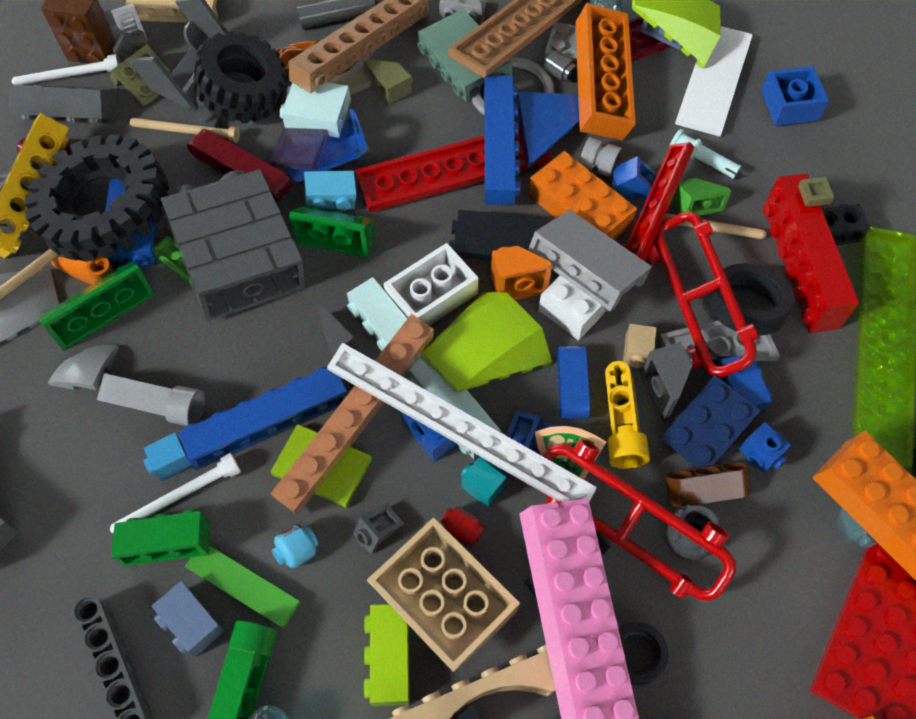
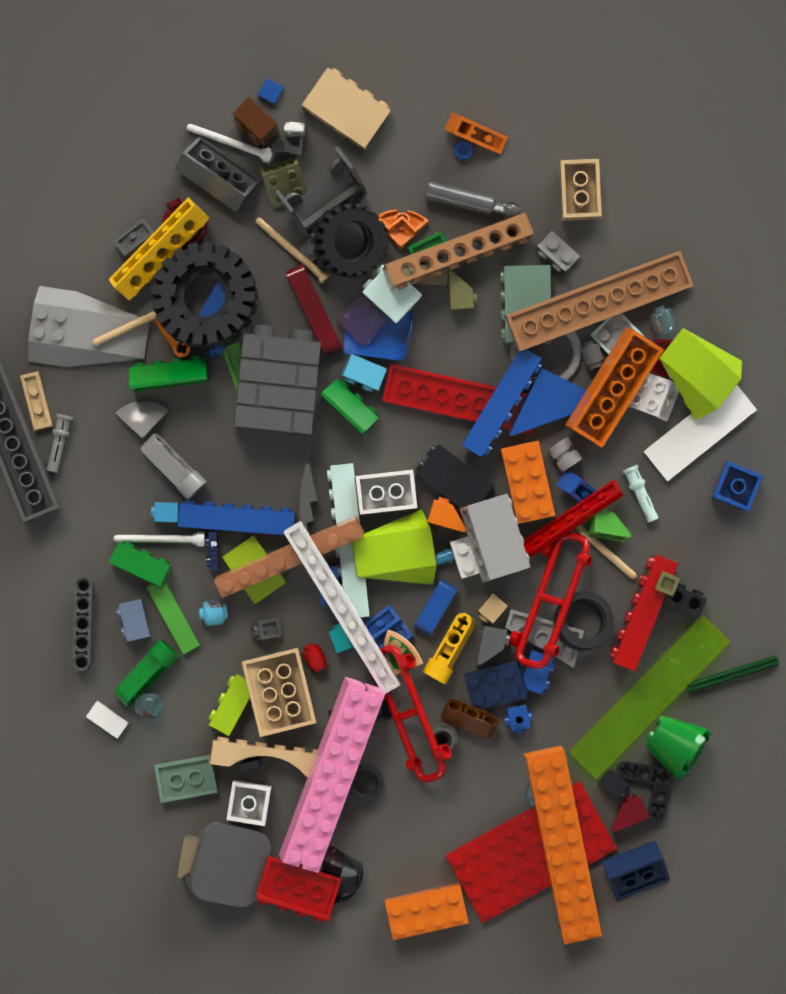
camera: 25 degrees right, 25 degrees up
(248, 460) = (212, 543): none -> dark blue plate
(547, 320) = (444, 556): none -> dark azure pin
(651, 65) = (656, 397): none -> white bracket

